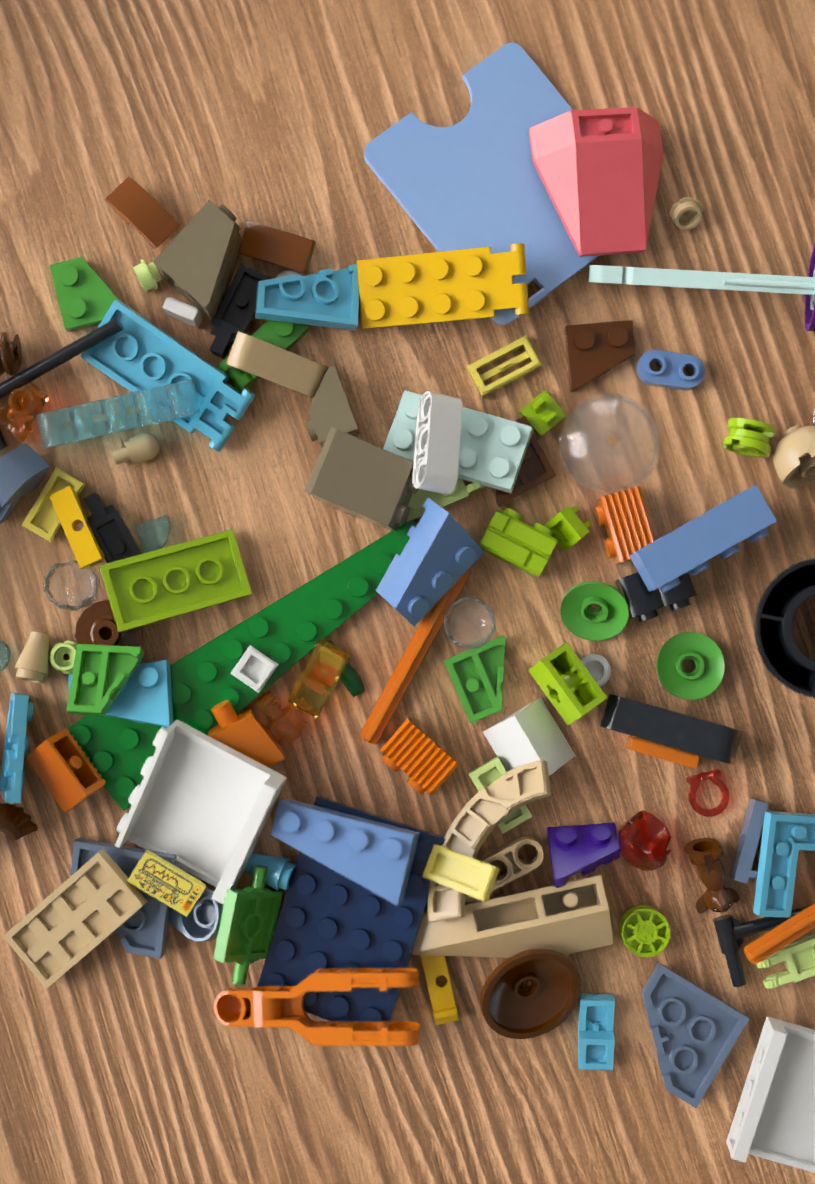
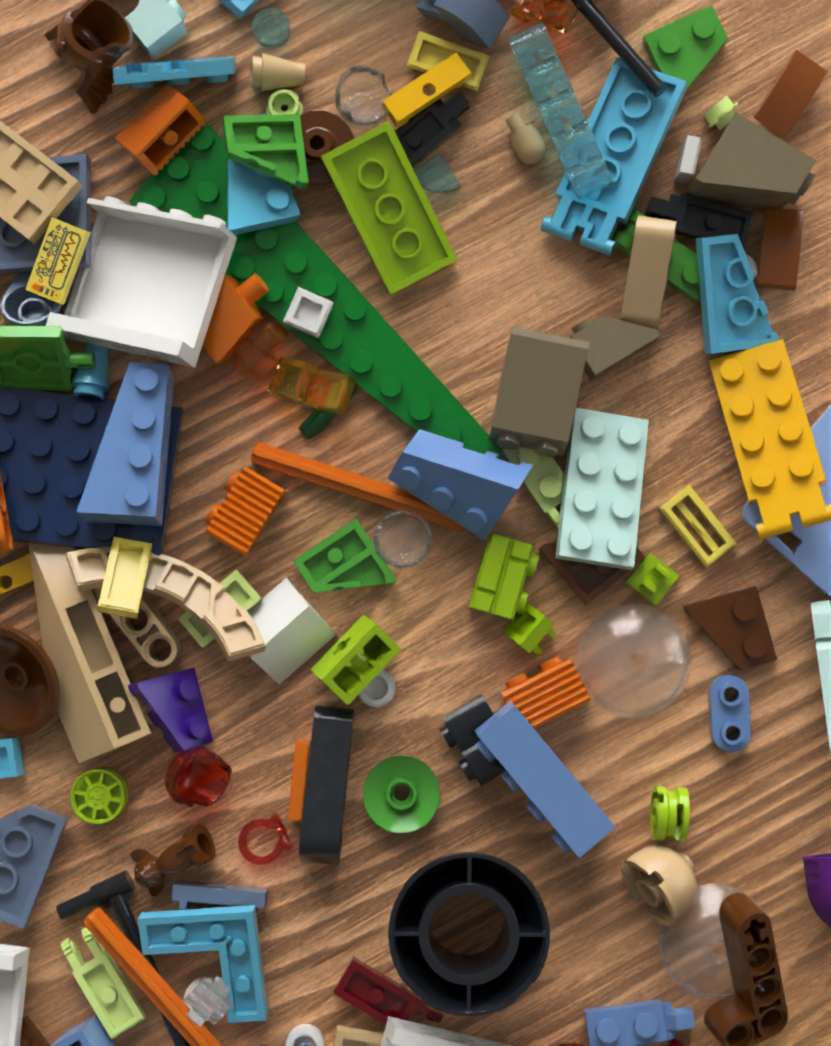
camera: 80 degrees right, 0 degrees up
(437, 443) = (594, 463): white beam -> none
(594, 622) = (430, 675): bright green dish -> none

